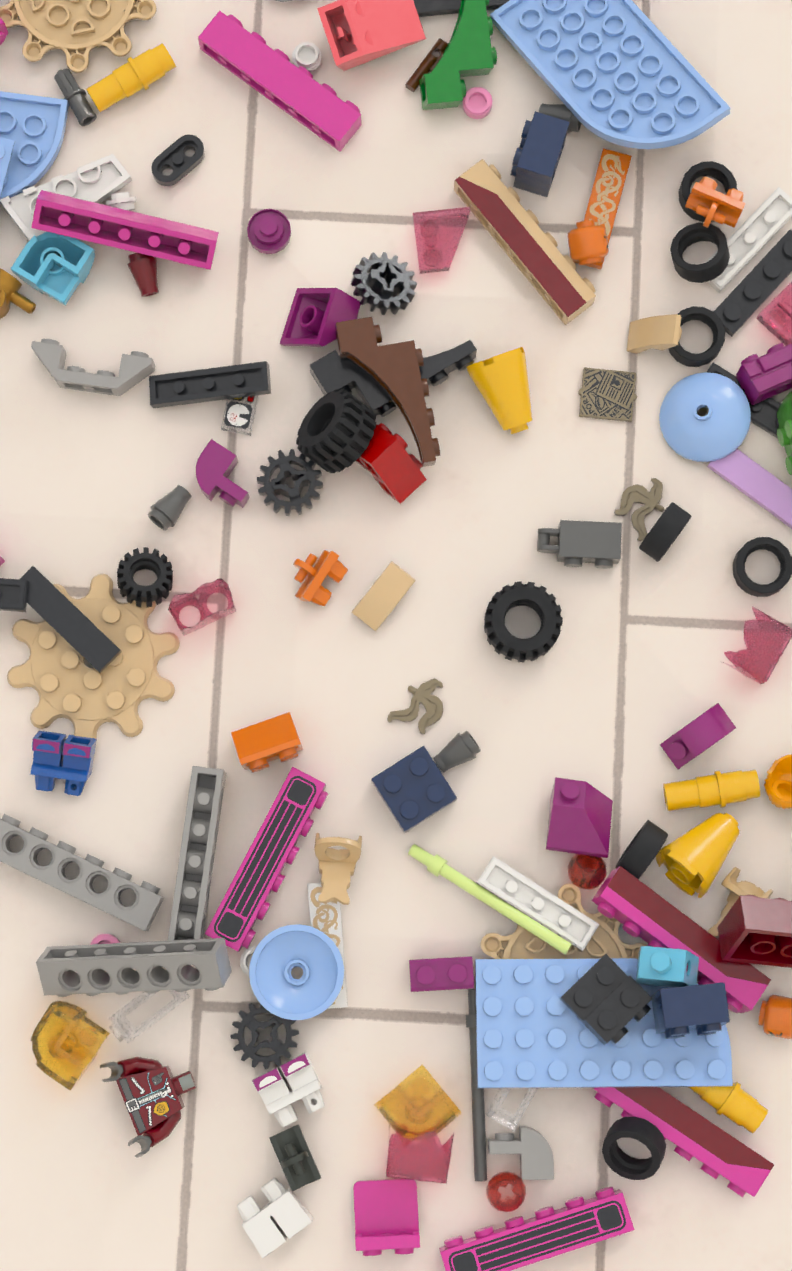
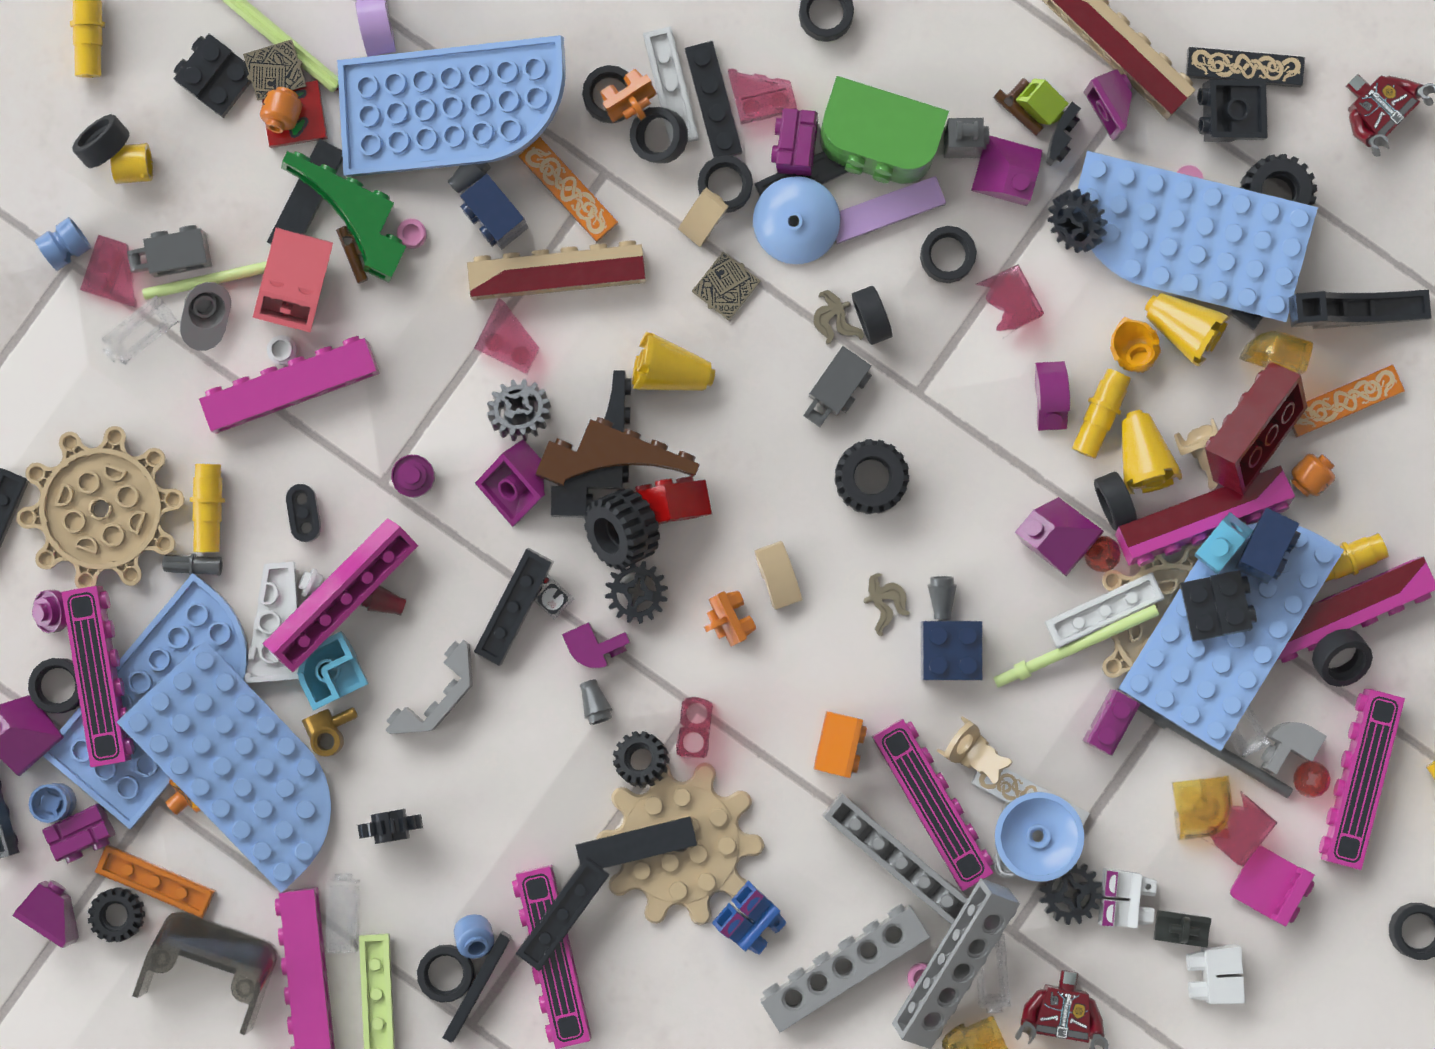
camera: 55 degrees left, 5 degrees up
(588, 243) = (593, 222): orange head -> none

